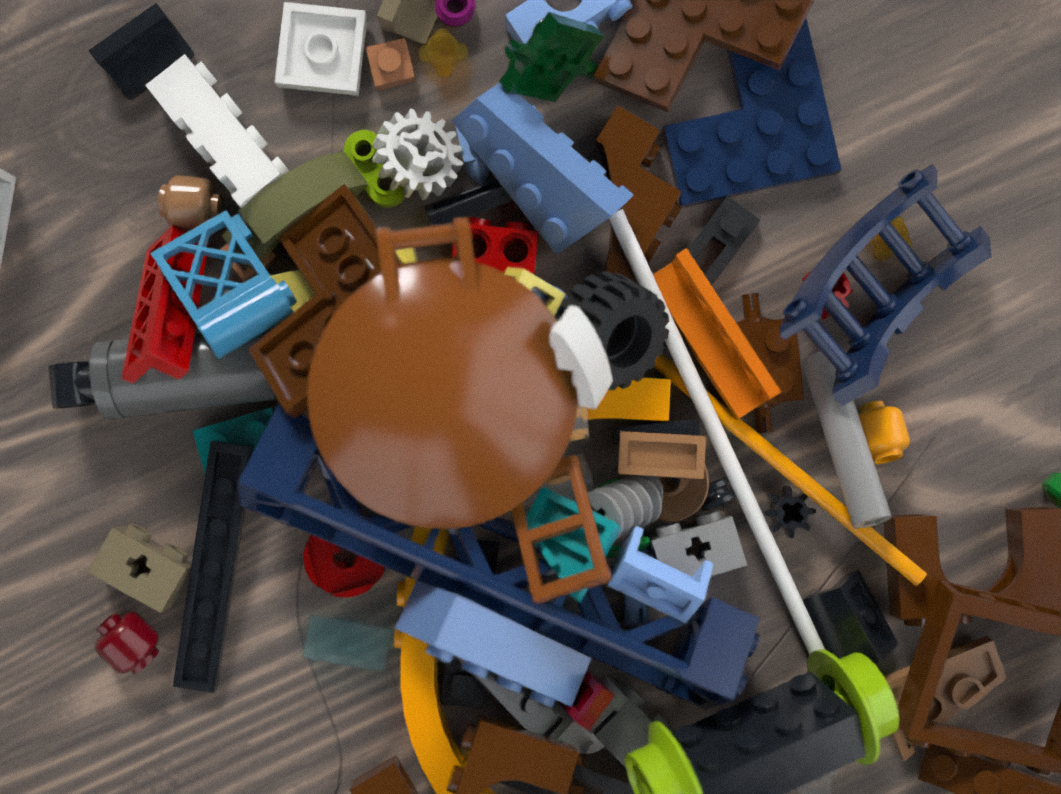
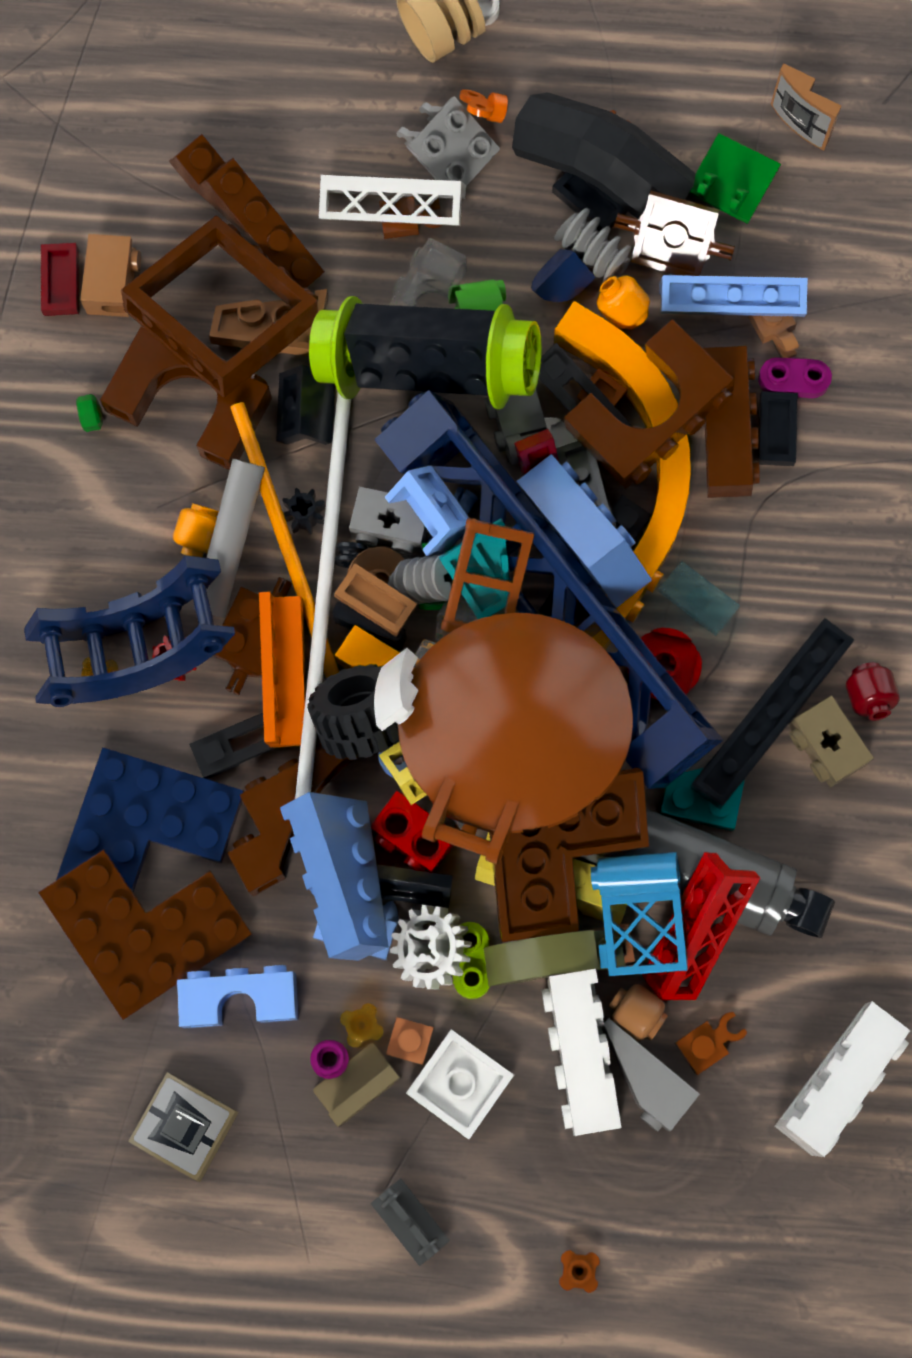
camera: 145 degrees left, 10 degrees down
(116, 212) = (705, 1046): none -> dark orange plate
(133, 144) = (653, 1085): none -> light grey slope
(141, 51) = (610, 1165): black panel -> none
(551, 57) = (276, 954): dark green plate -> none

